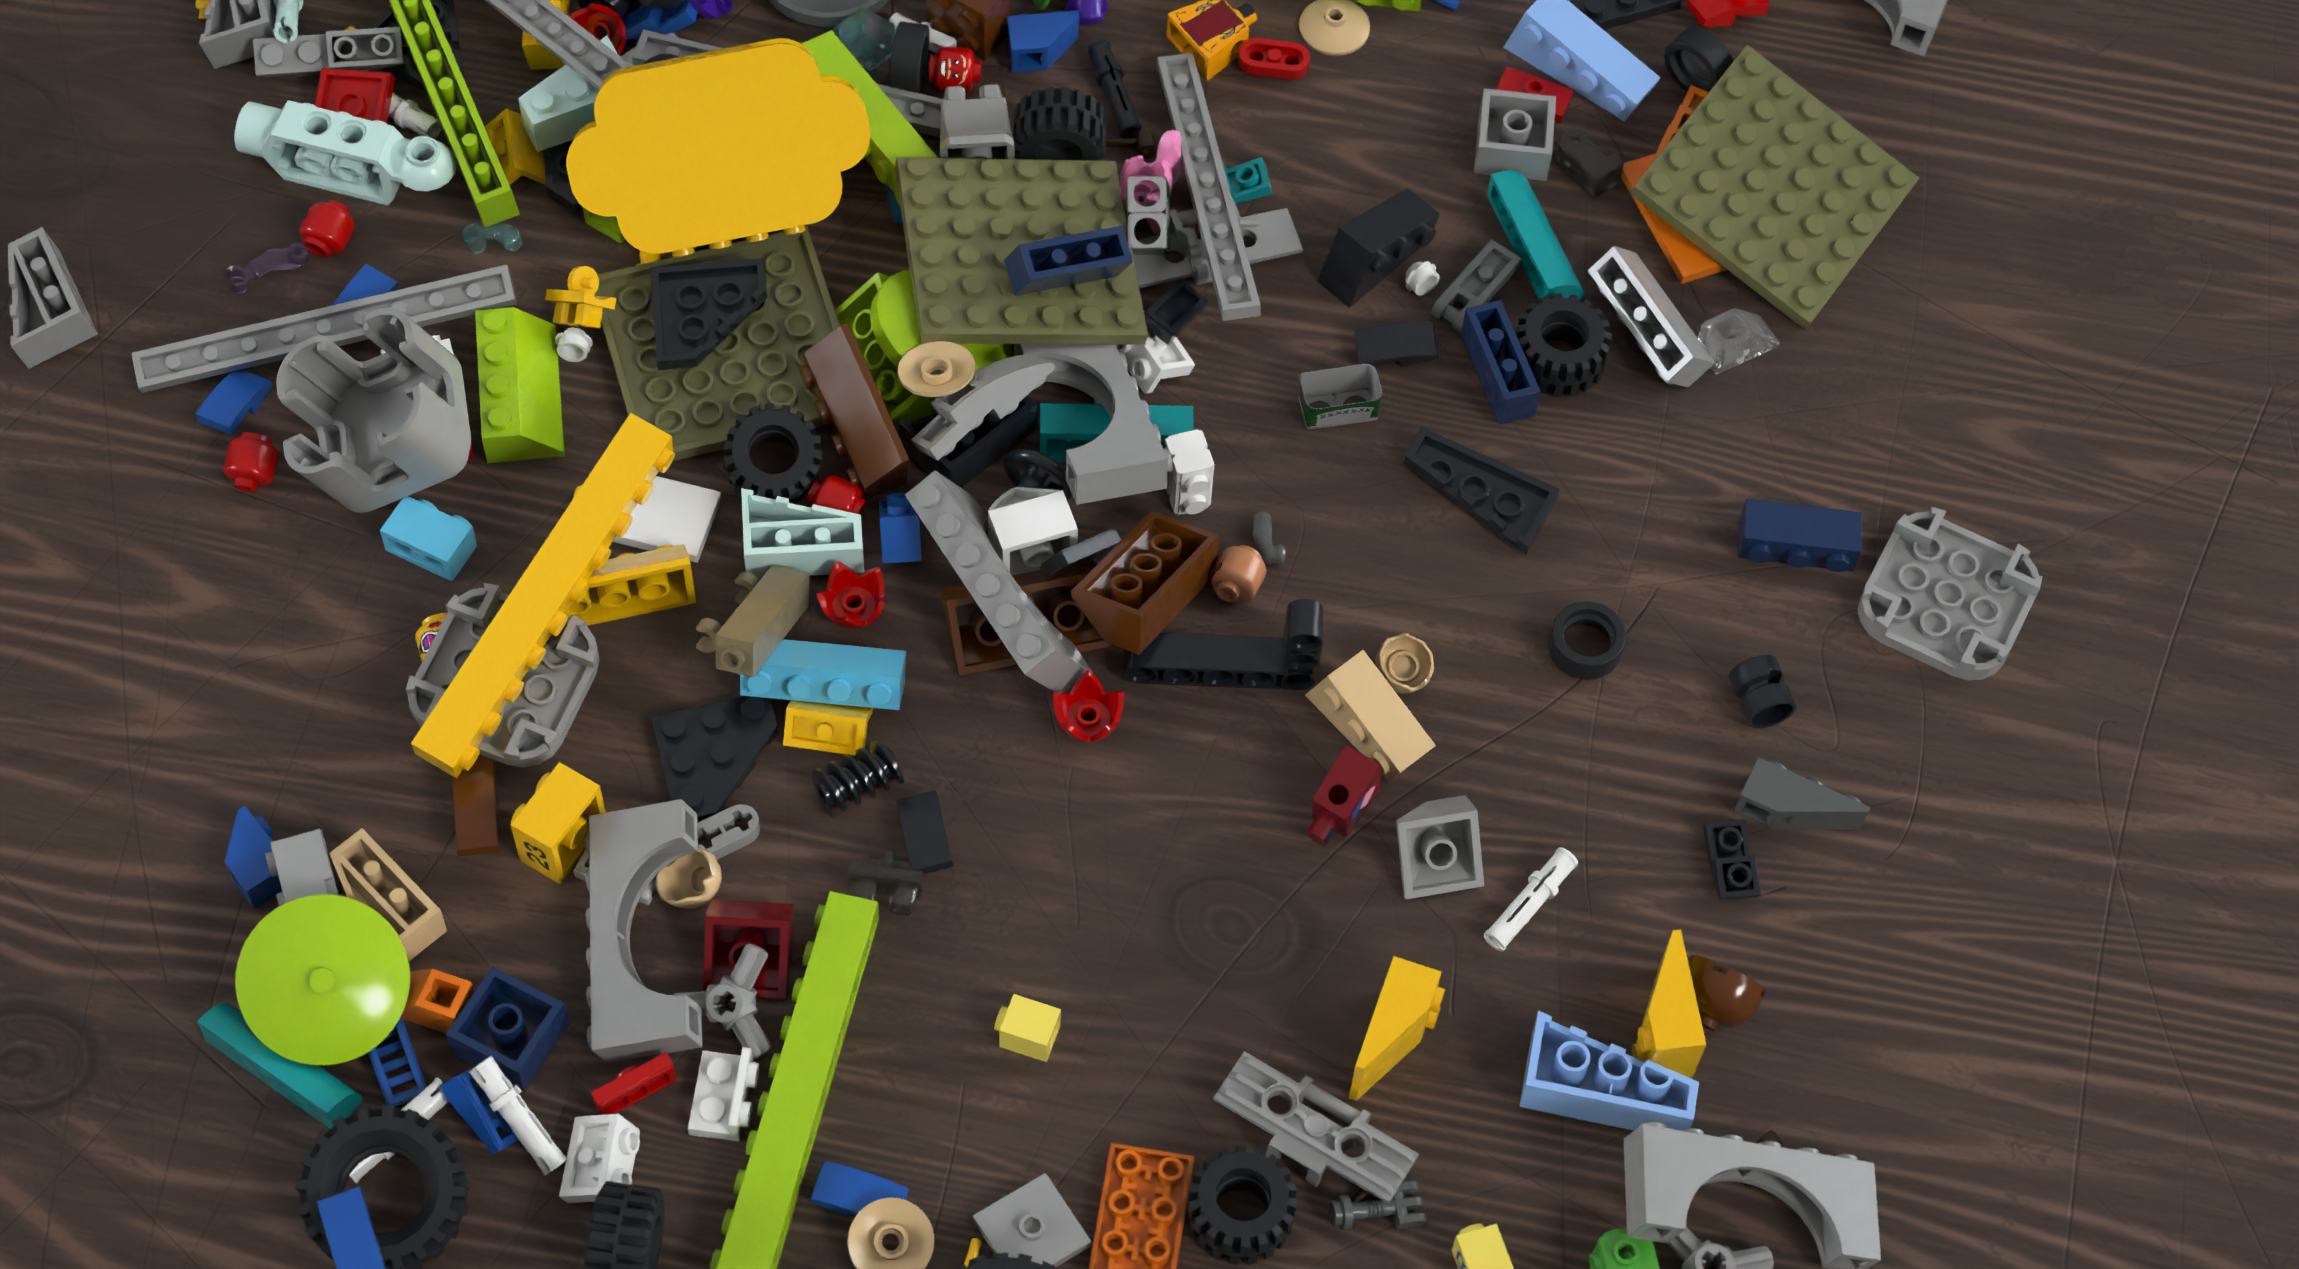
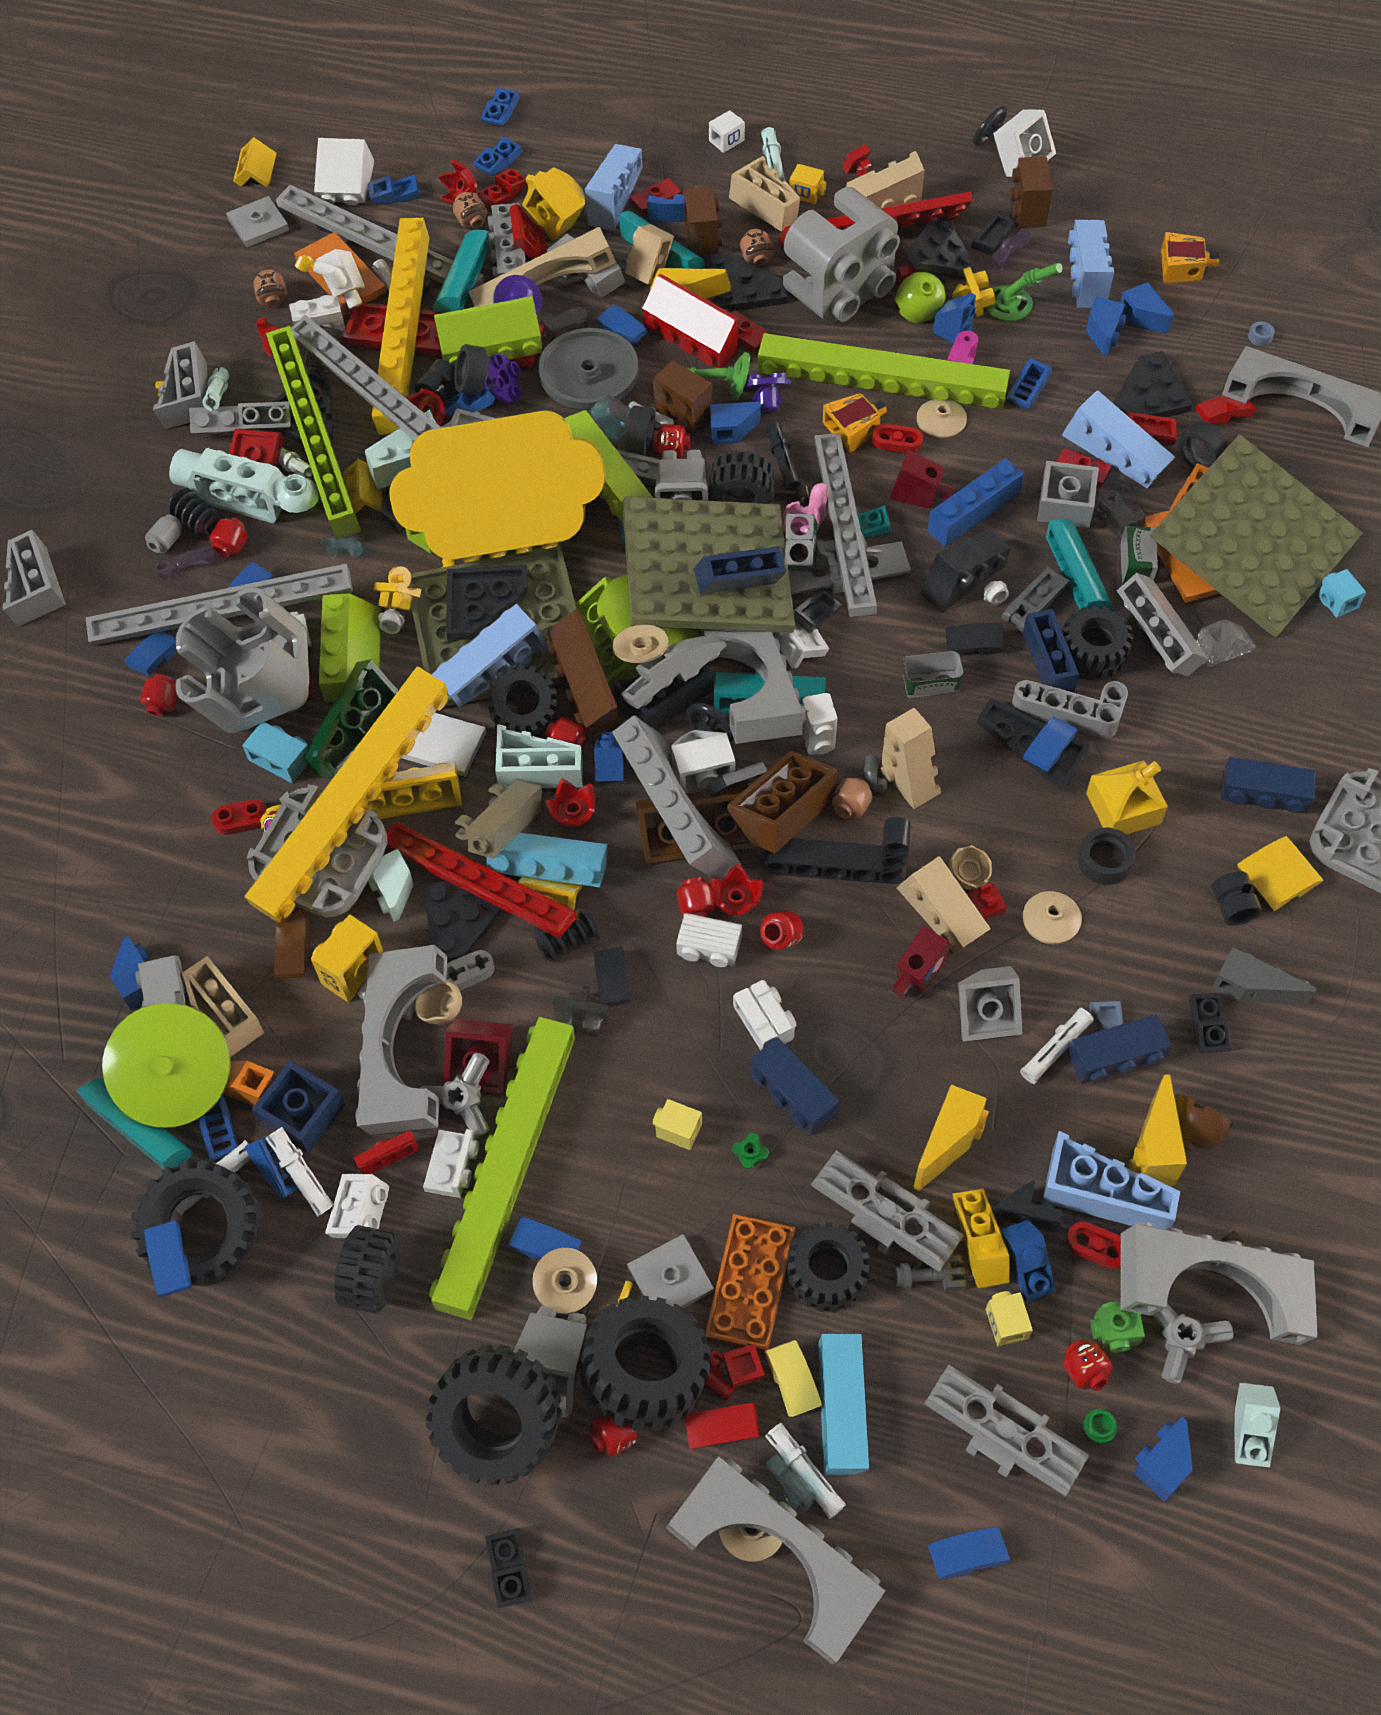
camera: 10 degrees right, 0 degrees up
(231, 226) = (163, 534): none -> light grey brick
(274, 194) = (193, 512): none -> black piece
(383, 632) = (239, 817): none -> red plate
(534, 488) = (350, 718): none -> dark green wedge
(609, 716) = (393, 883): none -> light aqua slope
(725, 388) = (499, 646): none -> light blue wedge
(732, 707) = (480, 880): none -> red tile
(1033, 722) = (696, 897): none -> red head
(1054, 777) = (709, 940): none -> white brick
(1130, 1070) = (747, 1159): none -> green plate
(1136, 877) = (763, 1014): none -> white brick
(1153, 759) = (781, 930): none -> red head
(1181, 970) = (793, 1086): none -> dark blue brick
(1309, 122) = (920, 482): none -> dark red torso
(1313, 516) = (908, 758): none -> tan wedge
(1387, 149) = (975, 502): none -> blue brick
(1430, 707) = (988, 900): none -> red tile
(1443, 1158) = (982, 1239): none -> yellow slope
(1481, 426) = (1035, 701): none -> light grey beam
(1491, 1118) = (1018, 1208): none -> black slope
(1504, 1182) = (1028, 1260): none -> blue slope
(1505, 489) = (1050, 743): none -> blue slope
(1517, 741) = (1048, 927): none -> tan dish
(1595, 1157) = (1098, 1244): none -> red plate
(1597, 855) = (1107, 1013): none -> sand blue tile
(1612, 559) = (1128, 797): none -> yellow piece
(1613, 900) = (1119, 1049): none -> dark blue brick
(1615, 216) = (1138, 553): none -> piece
(1636, 35) = (1159, 428): none -> red plate
(1819, 654) = (1280, 873): none -> yellow slope
(1892, 264) = (1341, 593): none -> medium azure brick

